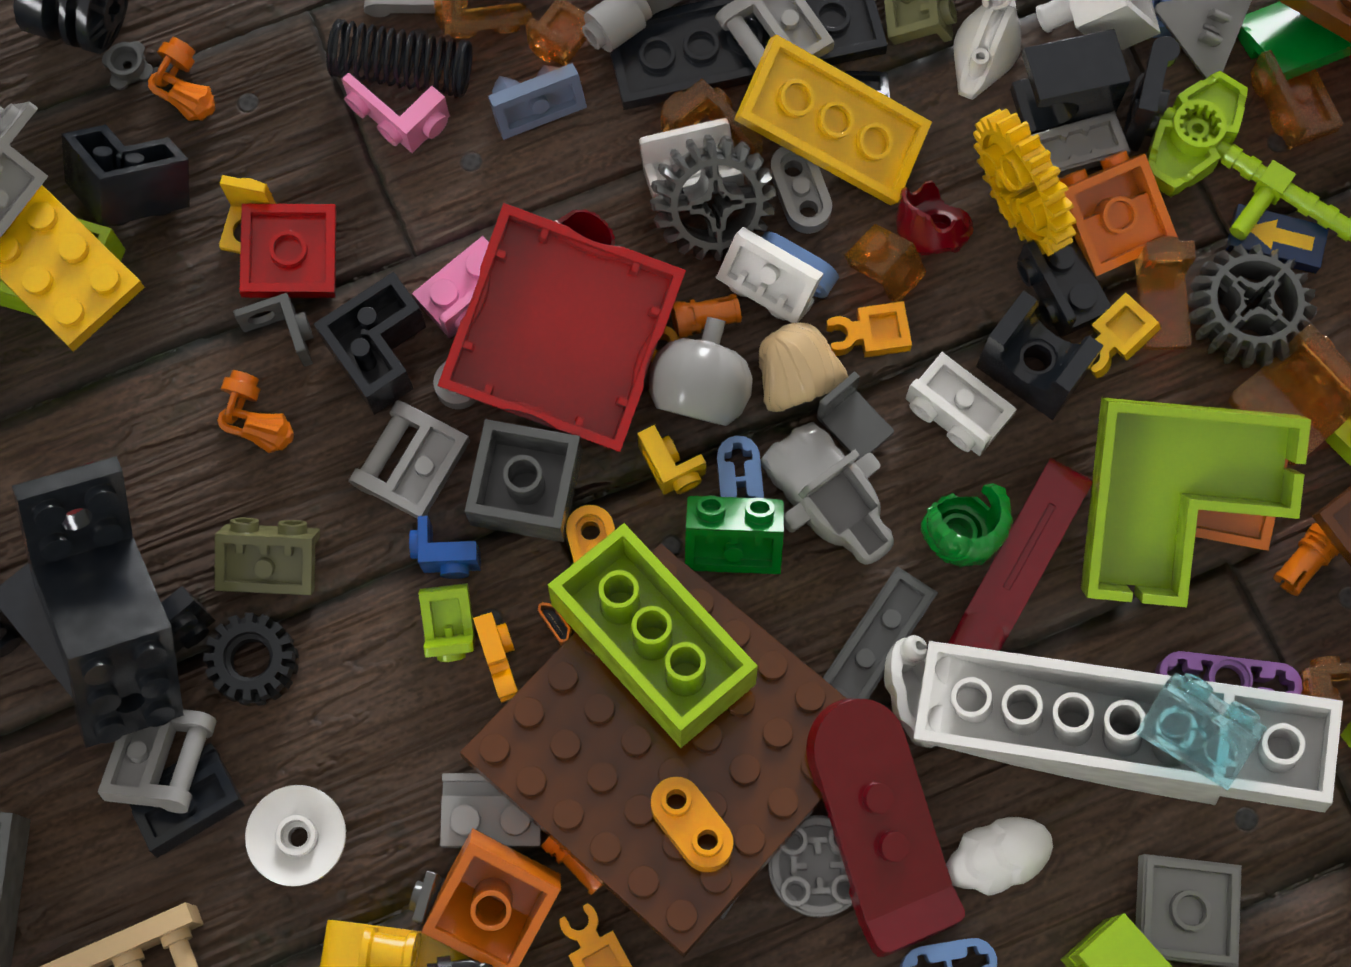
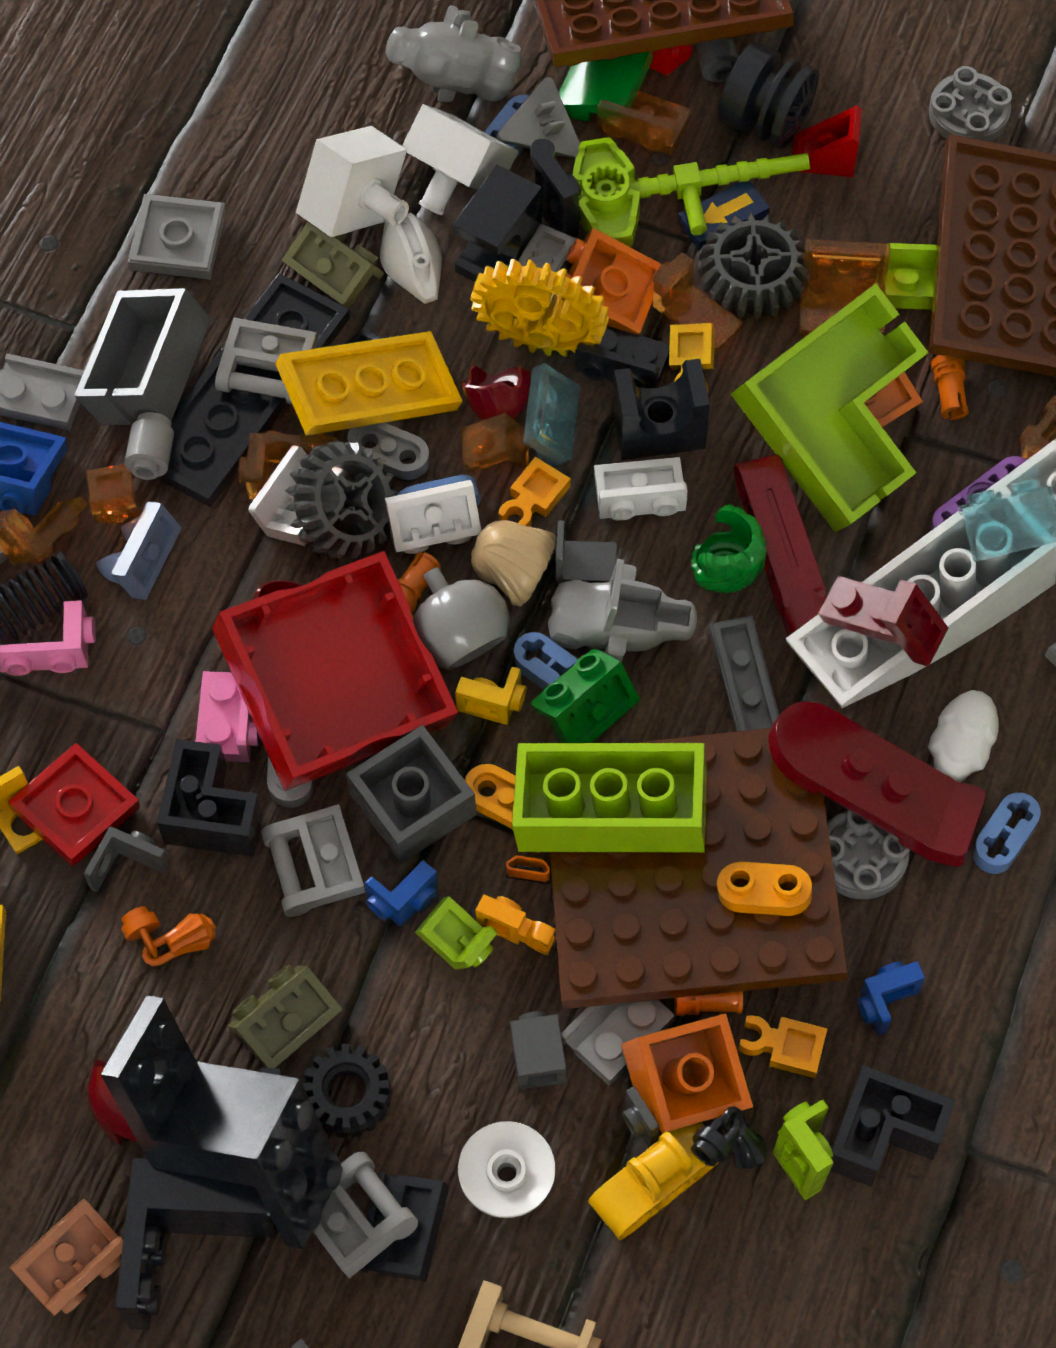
camera: 45 degrees left, 10 degrees down
(412, 768) = (538, 1050): none -> dark grey brick
(904, 681) = (794, 681): white arm -> none
(948, 279) = (551, 415): none -> clear light blue bracket
(1015, 706) = (892, 616): none -> dark red bracket

